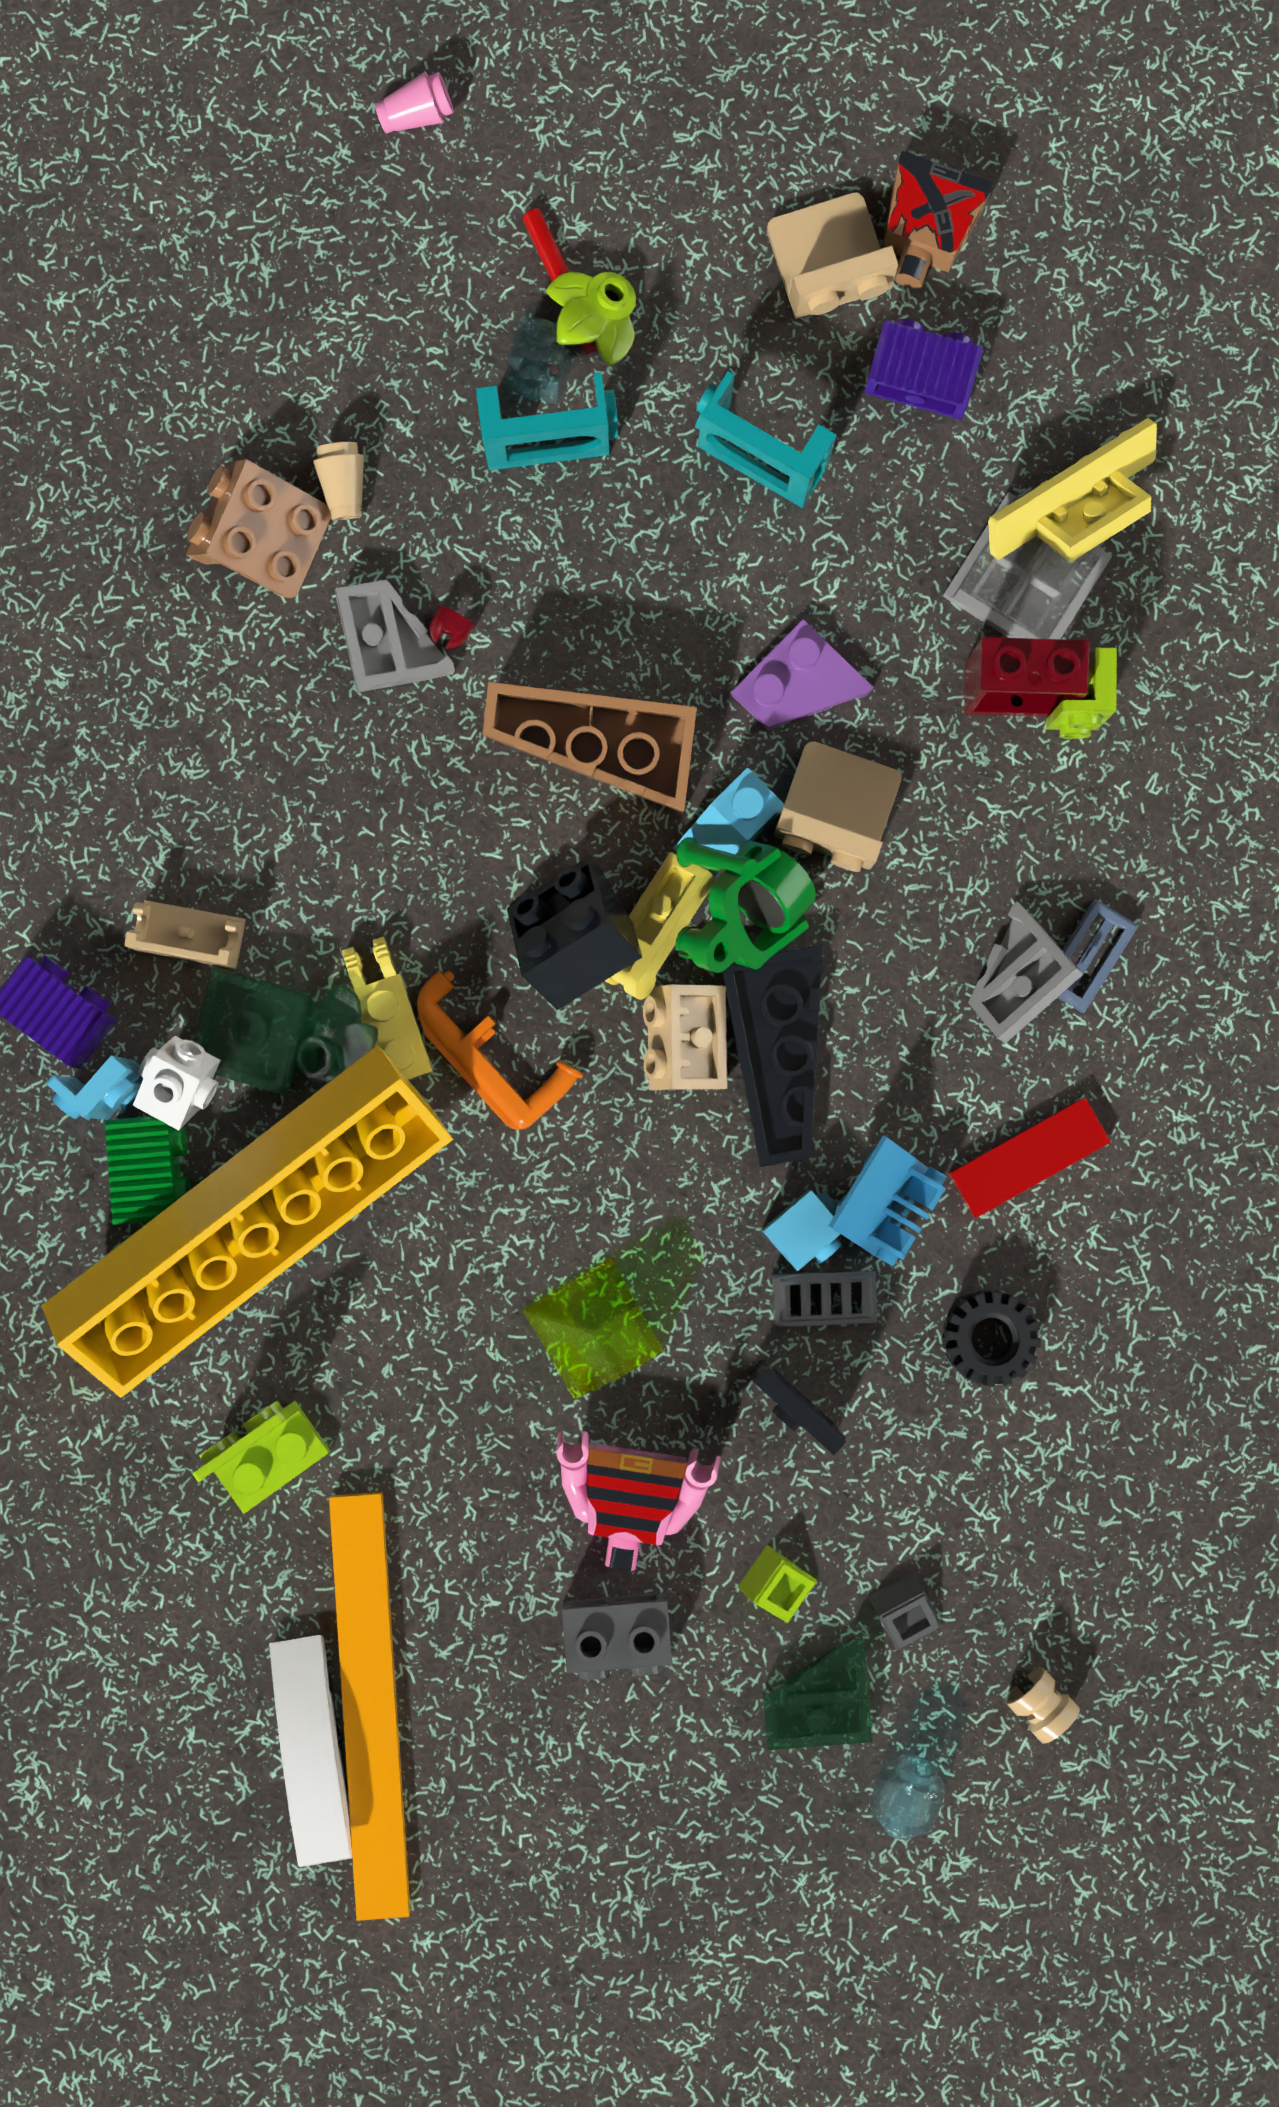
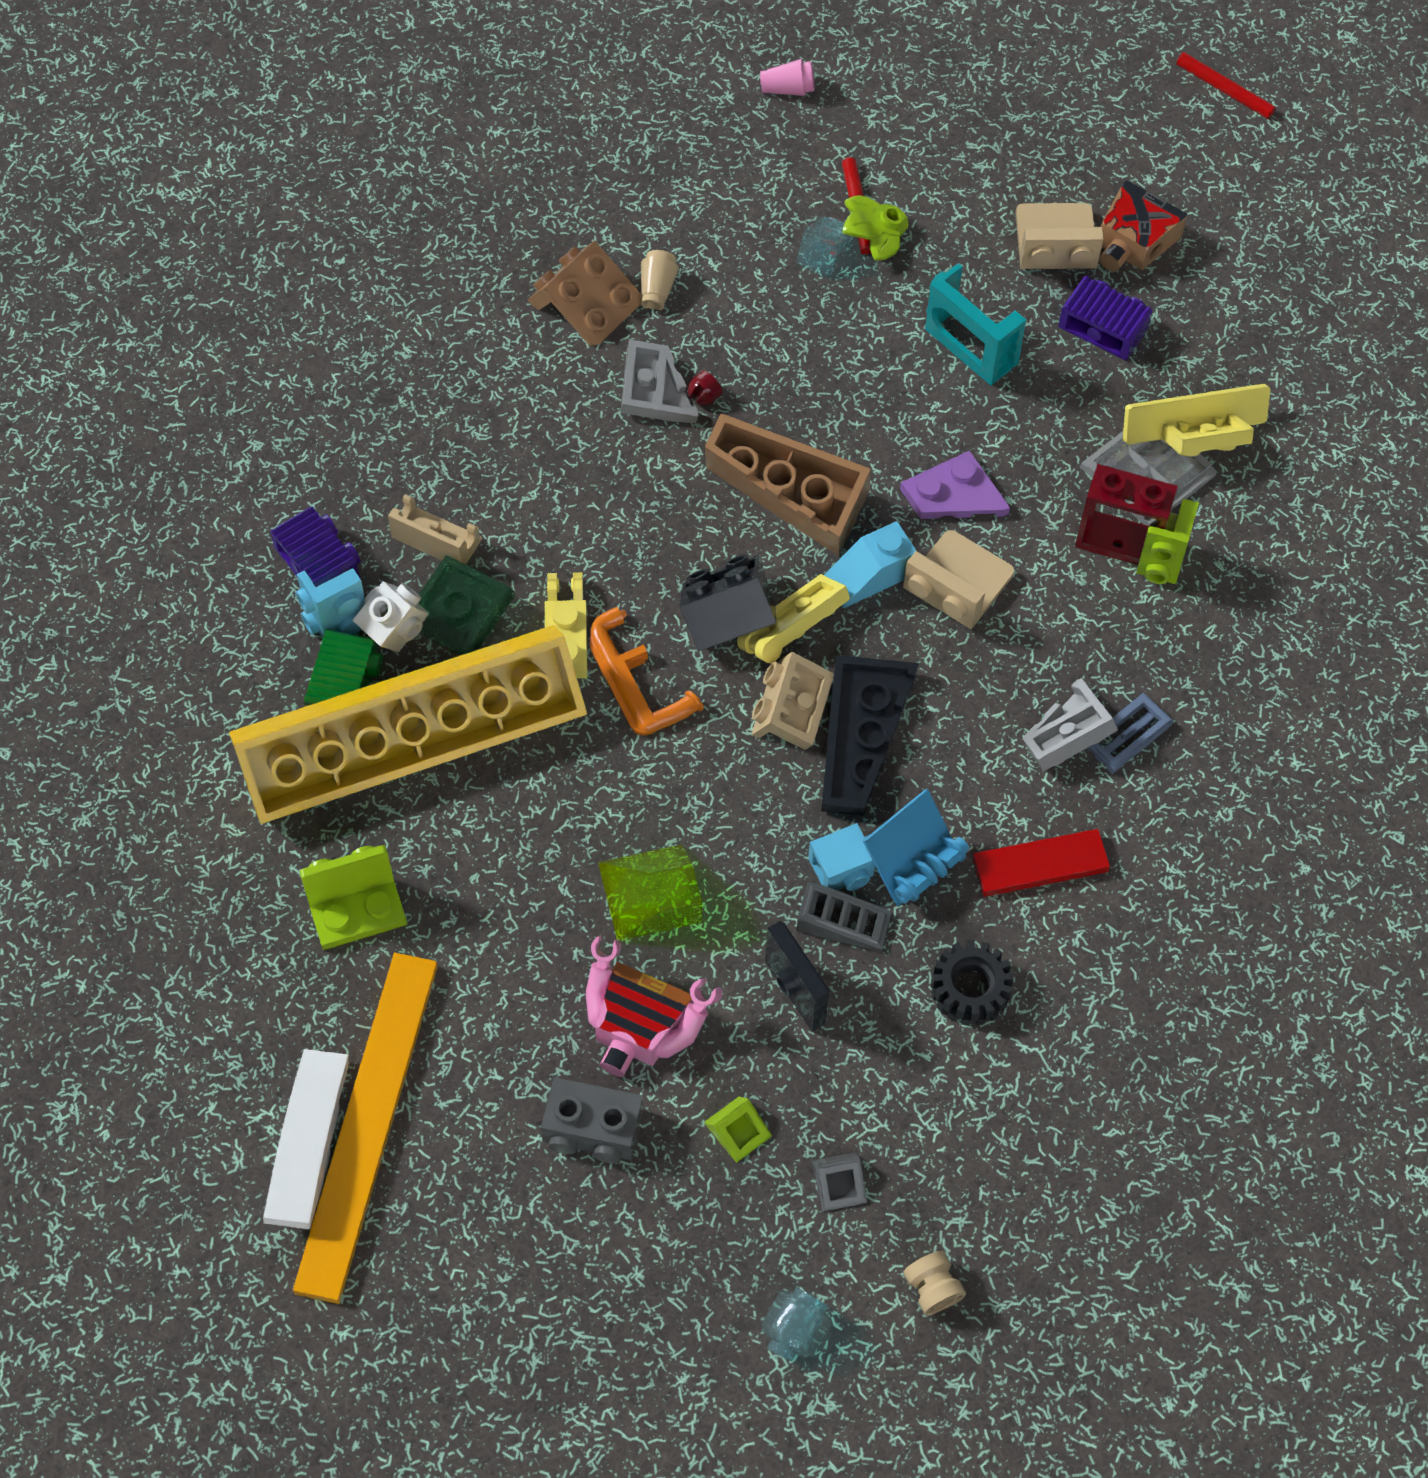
camera: 15 degrees right, 25 degrees down
(336, 1030) = (521, 619): clear green plate -> none
(592, 422) = (850, 272): teal panel -> none
(760, 883) = (885, 607): green piece -> none
(821, 1702) = (745, 1229): clear green wing -> none

